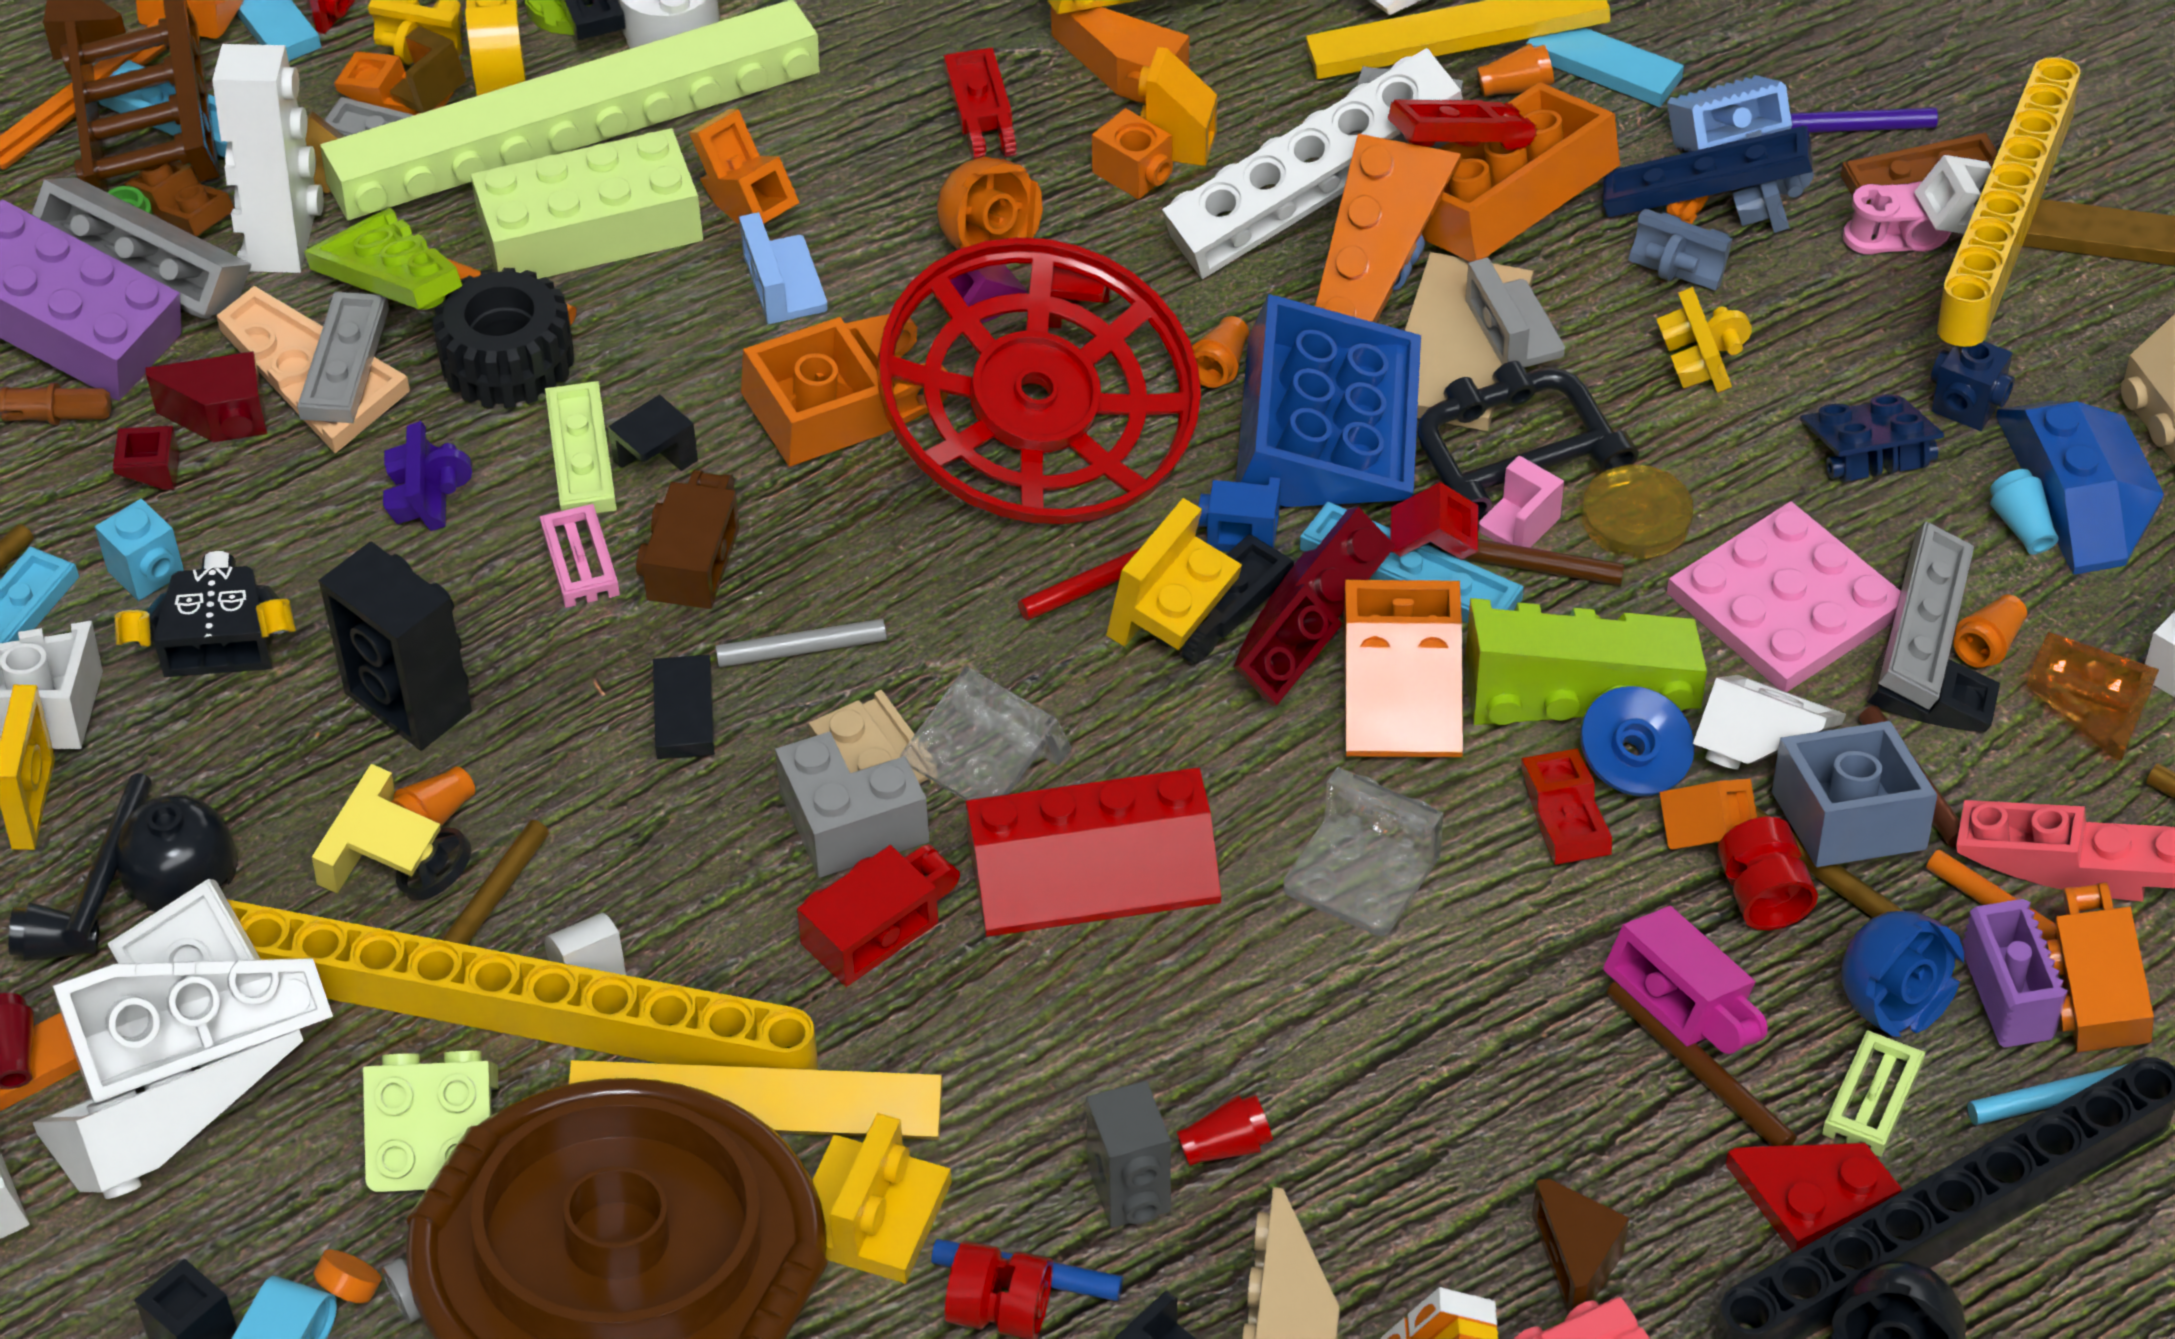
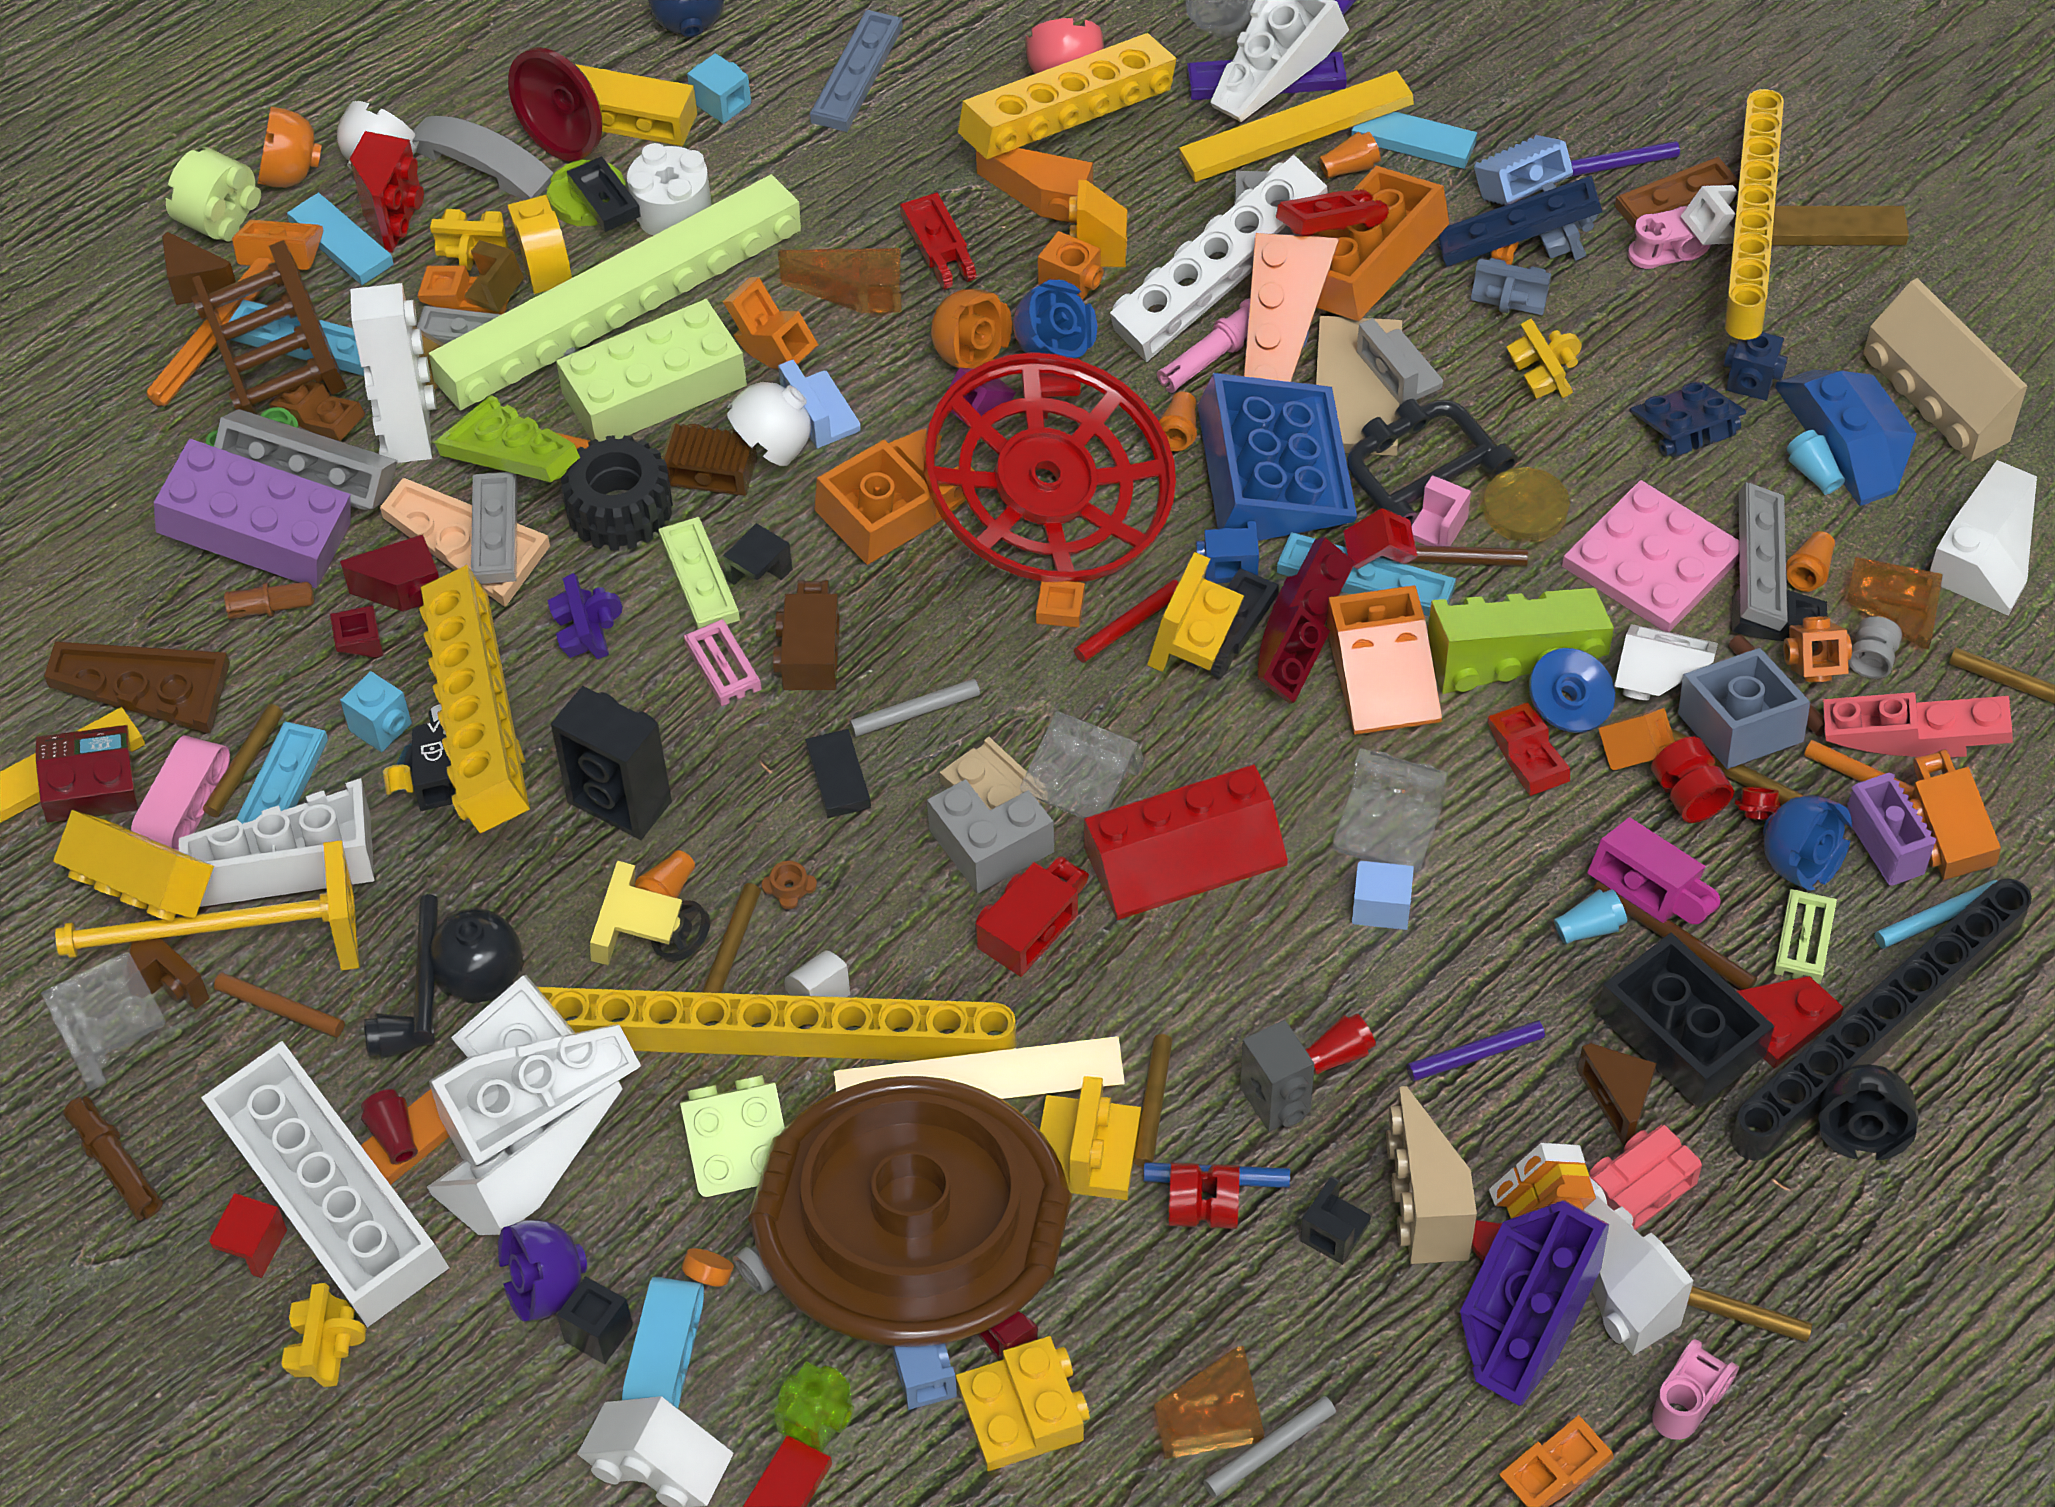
camera: 10 degrees left, 5 degrees up
(138, 1238) = (542, 1267): none -> dark purple cylinder
(248, 549) = (473, 701): none -> yellow brick
(581, 816) = (786, 873): none -> dark orange plate
(629, 315) = (709, 459): none -> reddish brown brick
(714, 278) = (773, 419): none -> white cylinder
(860, 131) = (848, 277): none -> clear orange slope
(970, 1163) = (1153, 1100): none -> pearl gold bar
(1016, 546) = (1060, 603): none -> orange tile
(1093, 209) = (1055, 320): none -> blue cylinder
(1303, 261) = (1226, 335): none -> bright pink pin
(1328, 955) = (1382, 895): none -> light blue panel
(1403, 1168) = (1475, 1051): none -> dark purple bar
(1595, 1025) = (1592, 917): none -> medium azure cone
(1683, 1170) = (1685, 1020): none -> black brick
(1847, 914) = (1758, 802): none -> red plate
(1989, 748) = (1829, 658): none -> orange brick
(2049, 746) = (1875, 647): none -> light grey wheel

